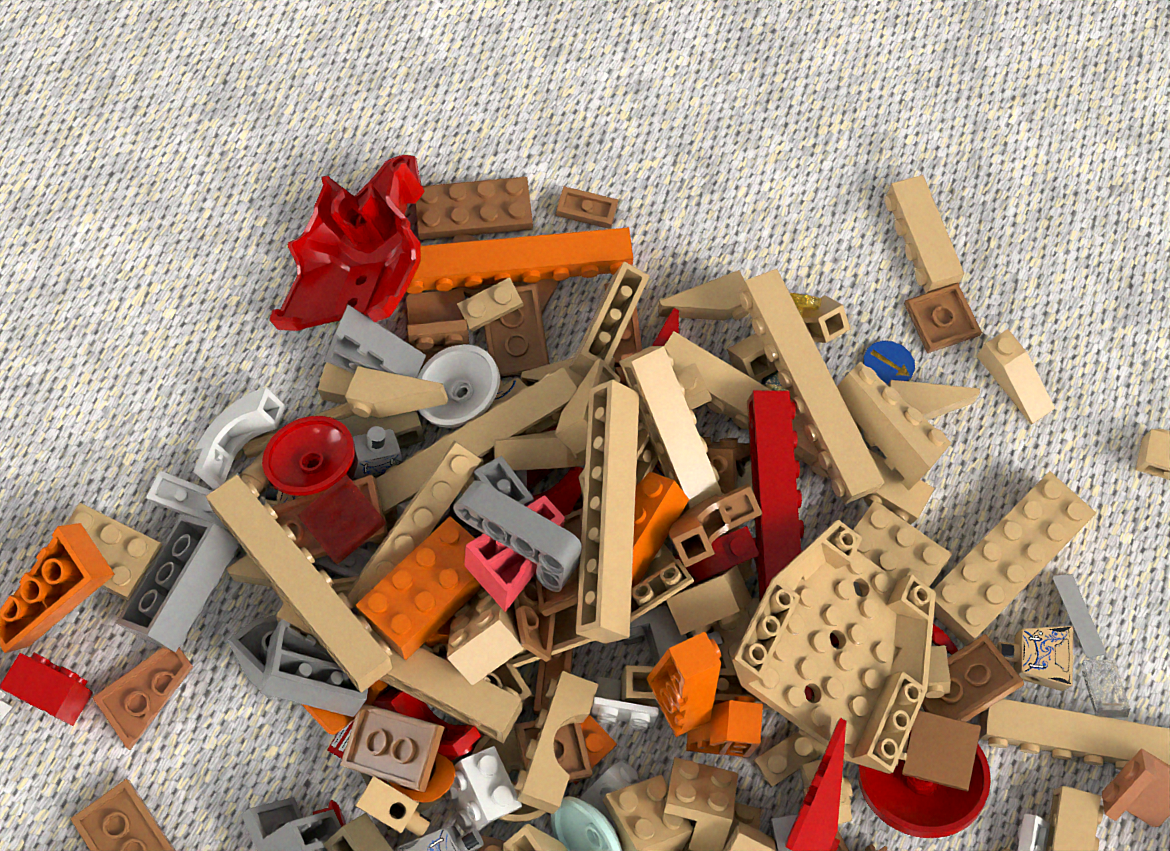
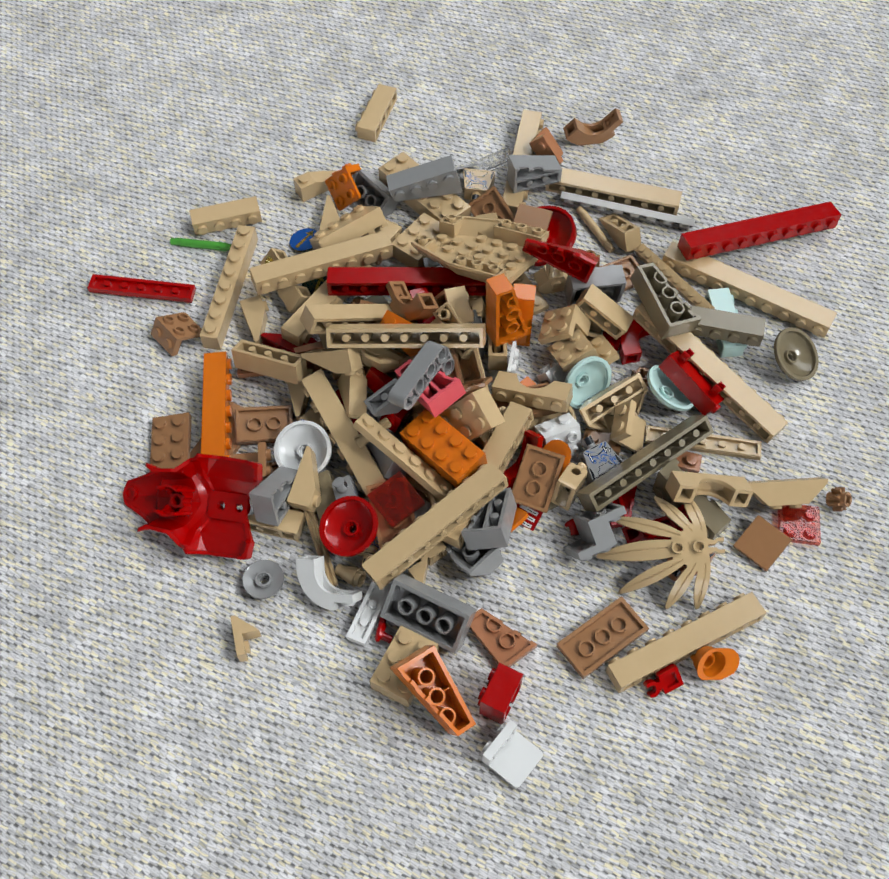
camera: 85 degrees left, 10 degrees down
(163, 521) = (380, 634): none -> red bar
(176, 330) = (241, 632): none -> tan slope
(249, 342) = (263, 570): none -> light grey dish
(490, 304) = (246, 433): tan plate -> none
(587, 207) = (180, 384): medium nougat plate -> none
(686, 189) = (173, 329): none -> medium nougat bracket
(766, 131) = (142, 288): none -> red plate
(766, 251) = (229, 287): none -> tan brick
(865, 205) = (202, 244): none -> bright green piece
(942, 318) = (278, 214): medium nougat tile -> none
(993, 465) = (373, 192): none -> light grey slope
(998, 408) = (343, 186): none -> orange bracket
(1009, 550) = (425, 180): none -> light grey wedge
(1064, 754) = (532, 171): none -> light grey wedge

